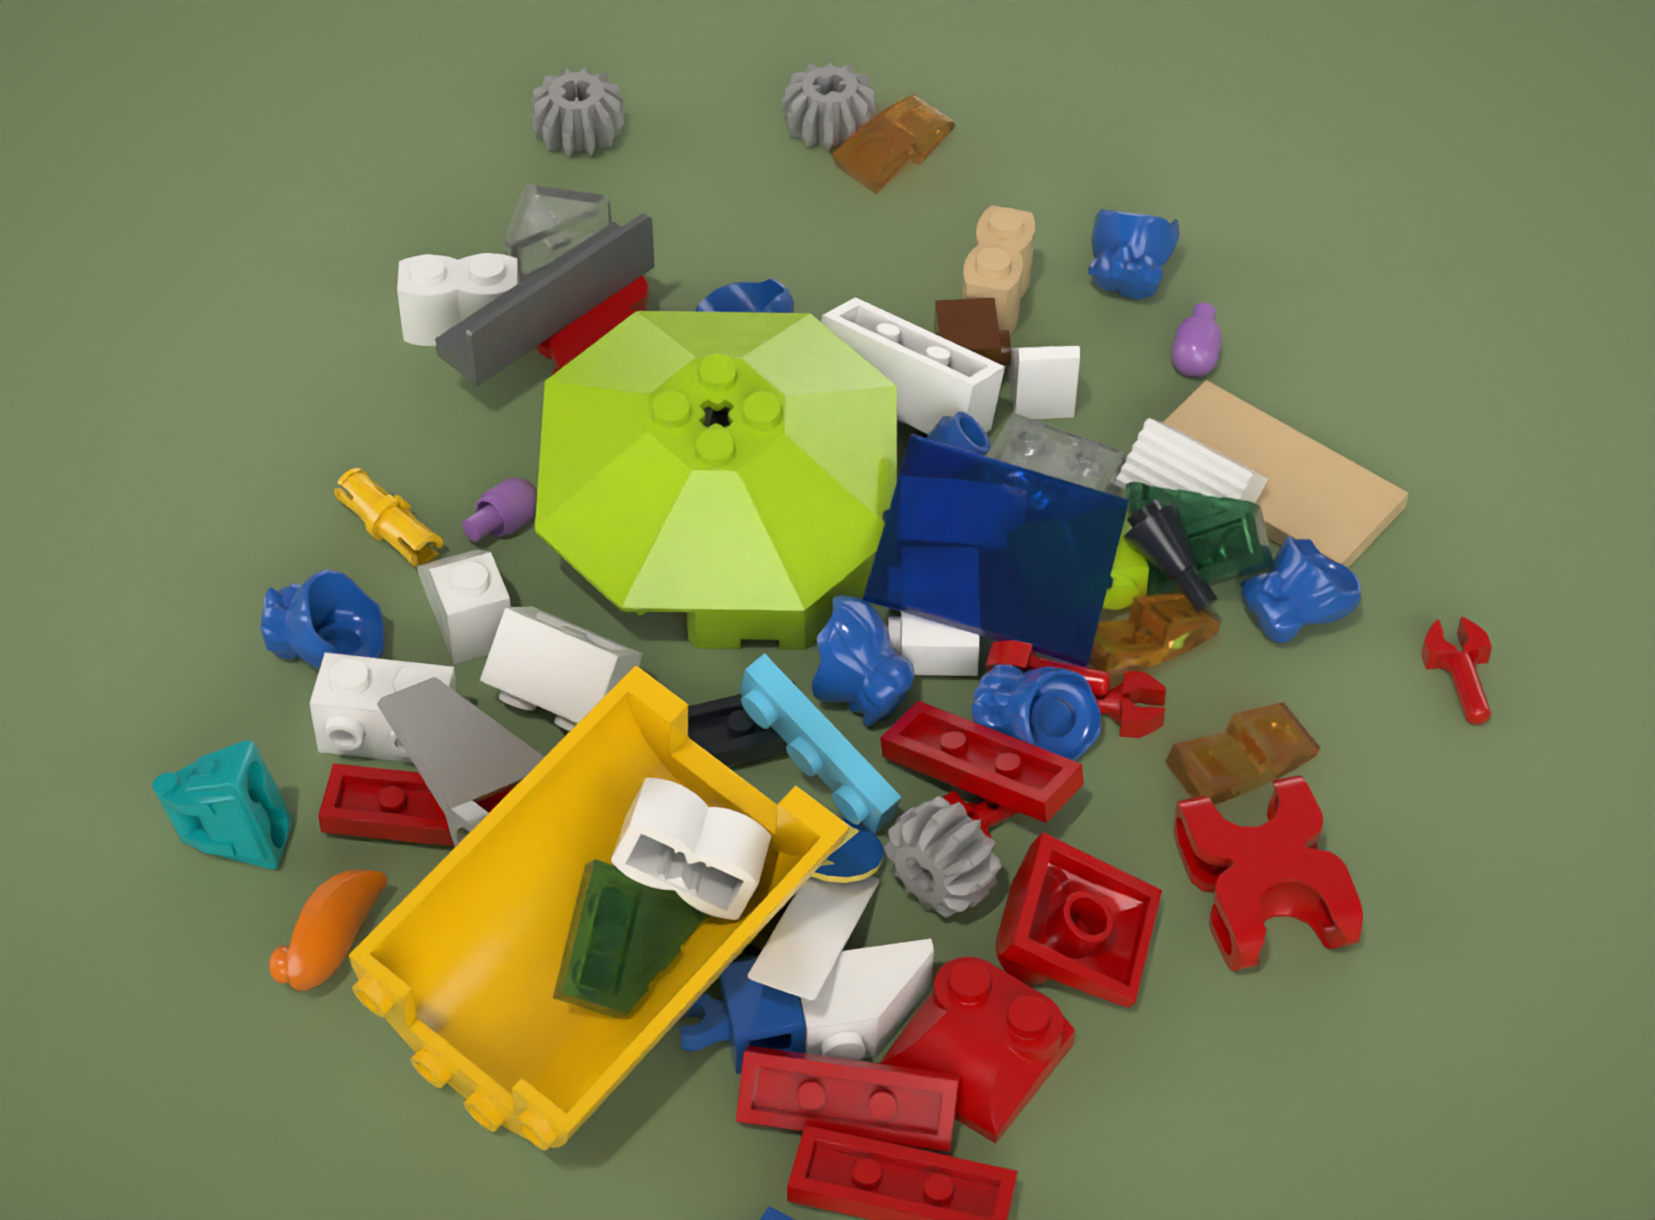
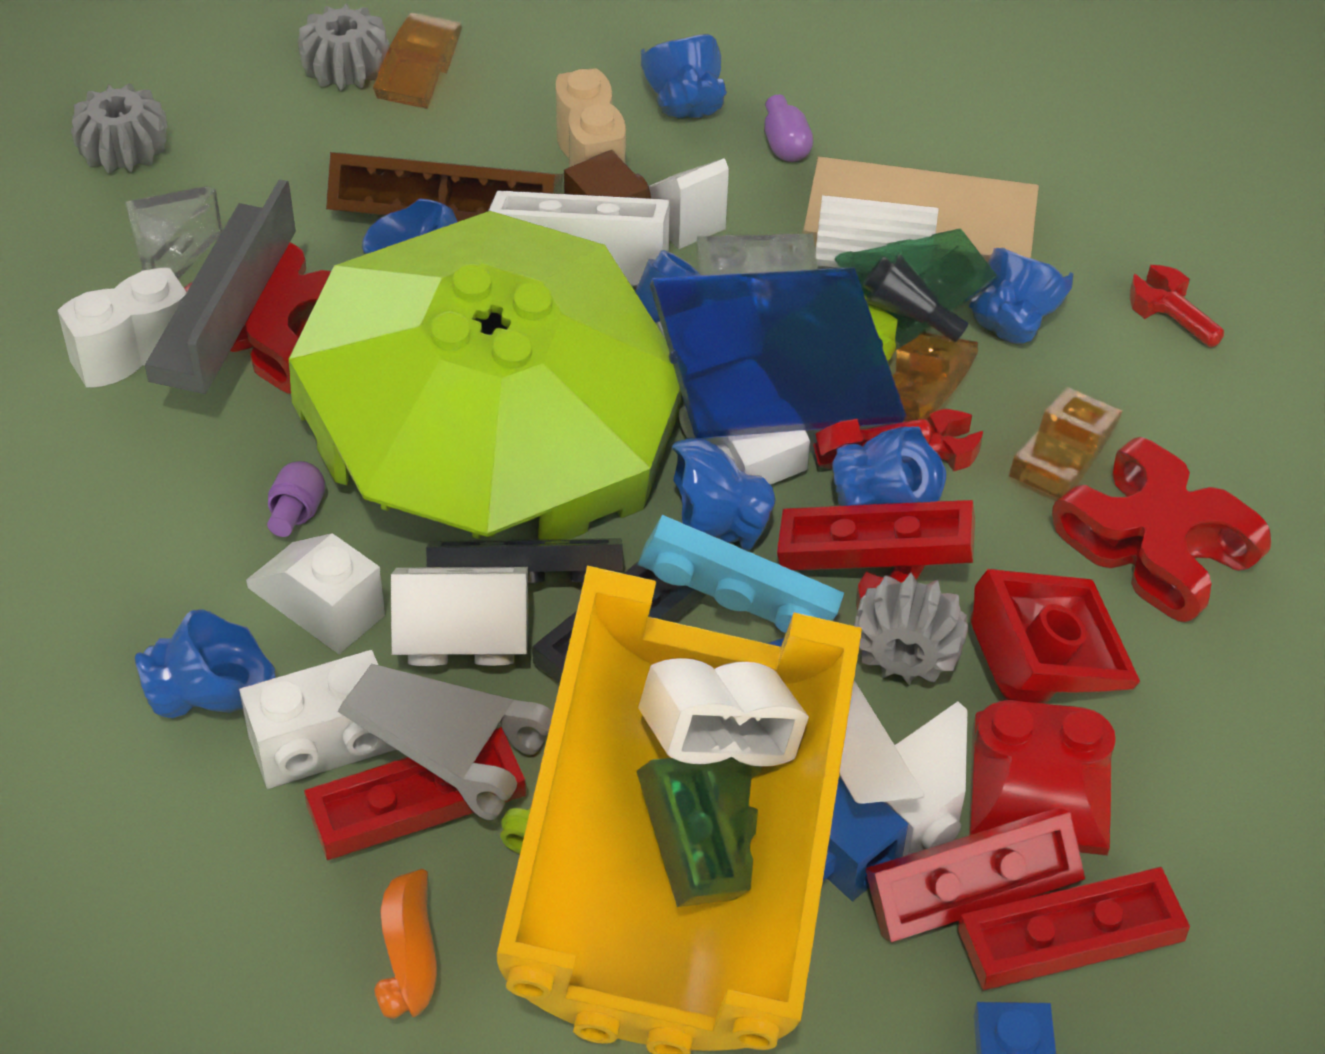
camera: 30 degrees left, 0 degrees up
(228, 806) = (231, 876): teal piece -> none
(388, 517) = (190, 547): yellow pin -> none
(663, 649) = (536, 554): none -> black plate
(812, 268) = (392, 184): none -> reddish brown brick

